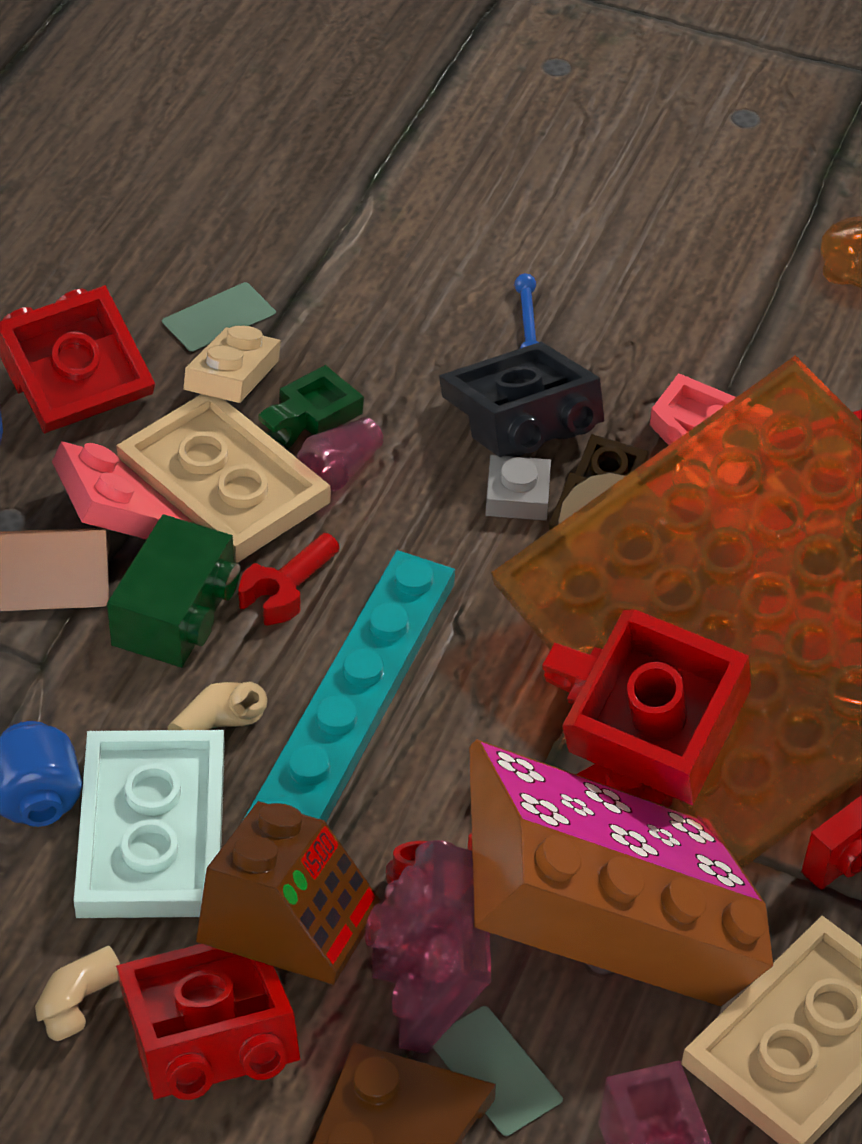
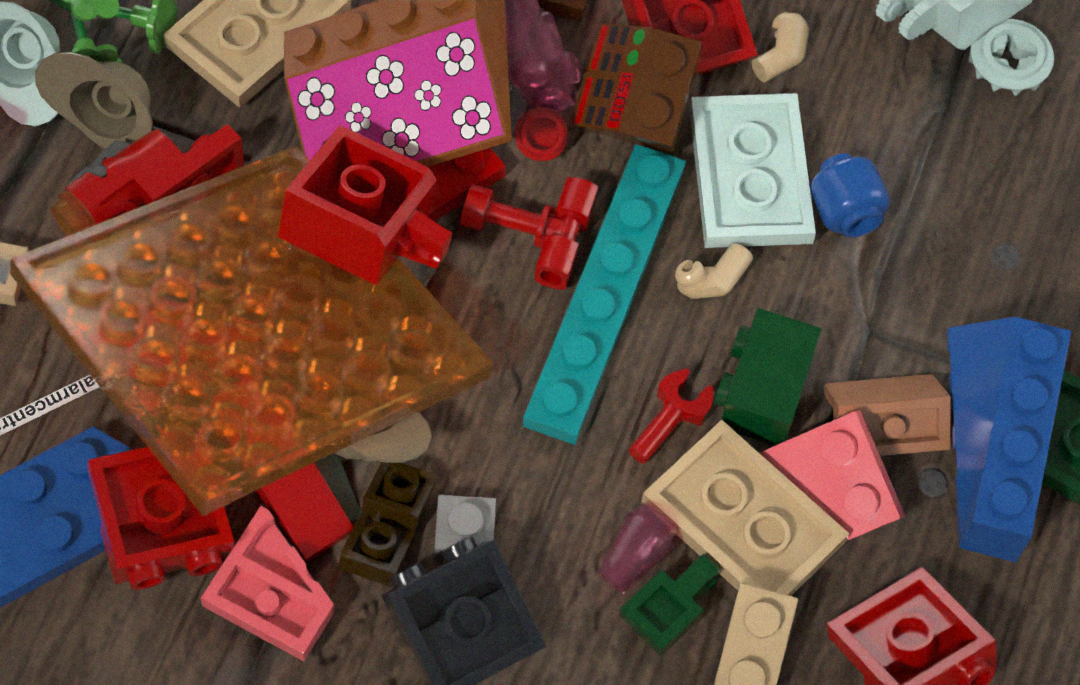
camera: 175 degrees right, 15 degrees up
(405, 758) = (553, 229): none -> red bar

